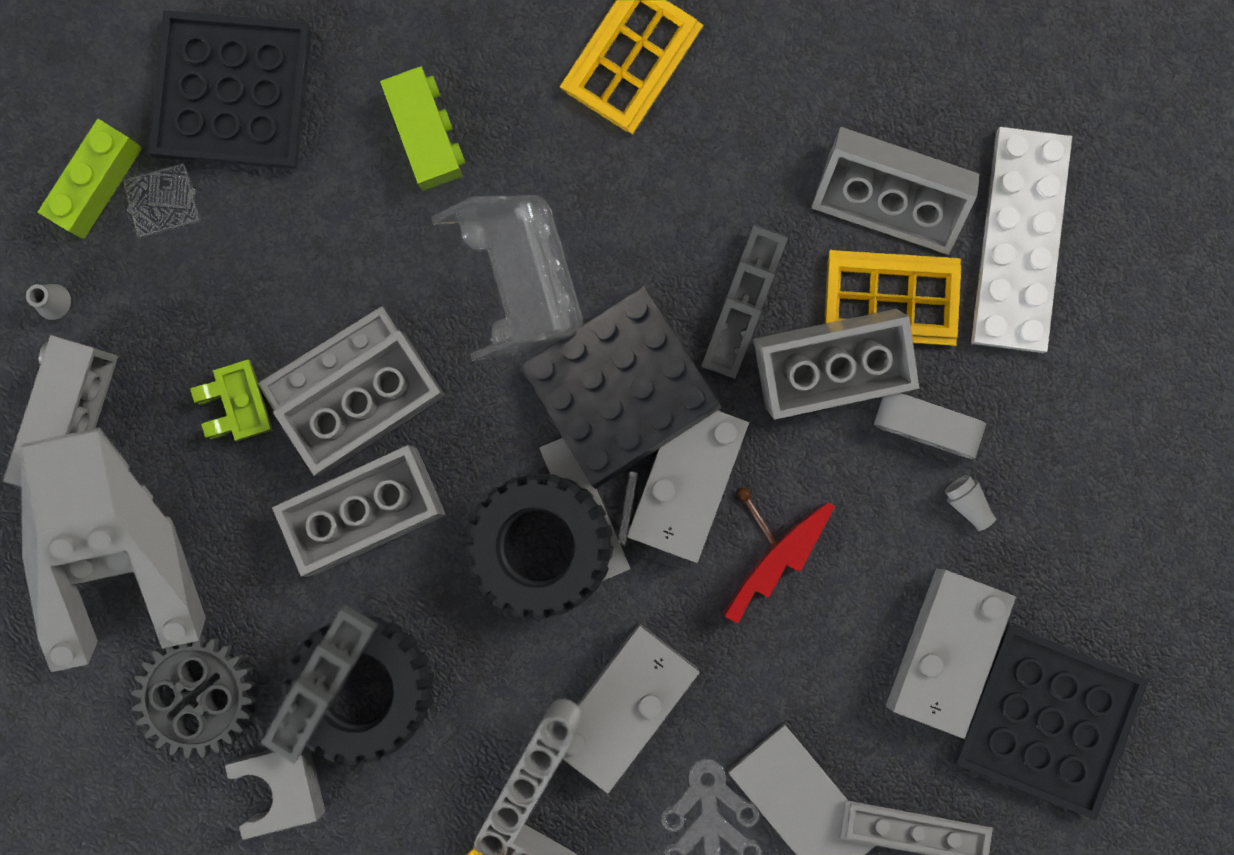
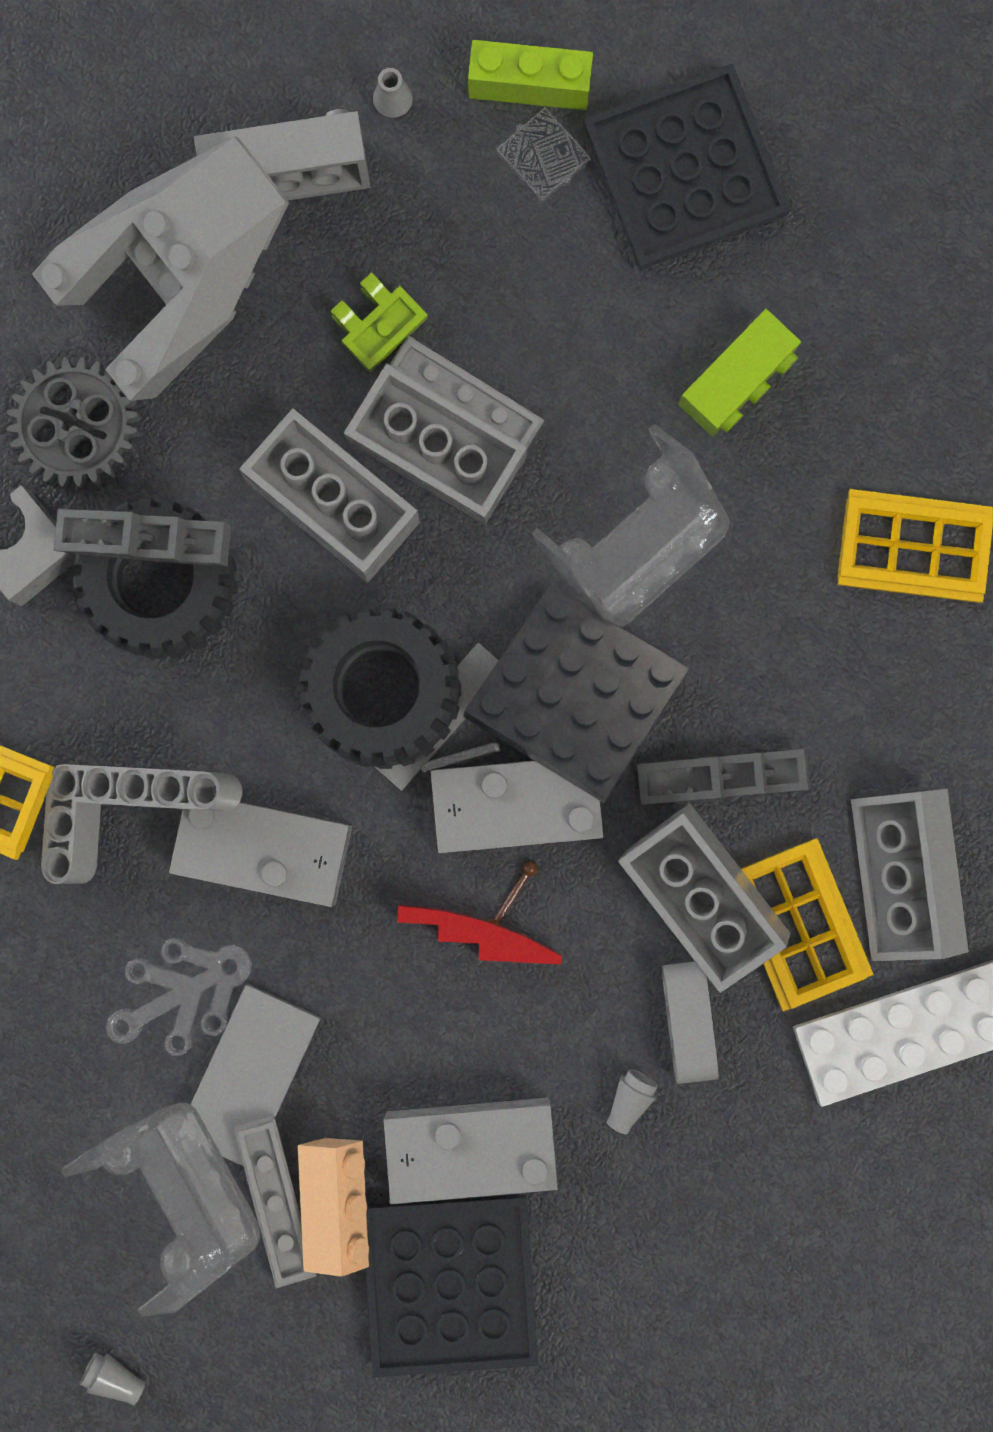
camera: 65 degrees right, 0 degrees up
(943, 786) = (333, 1206): none -> light nougat brick

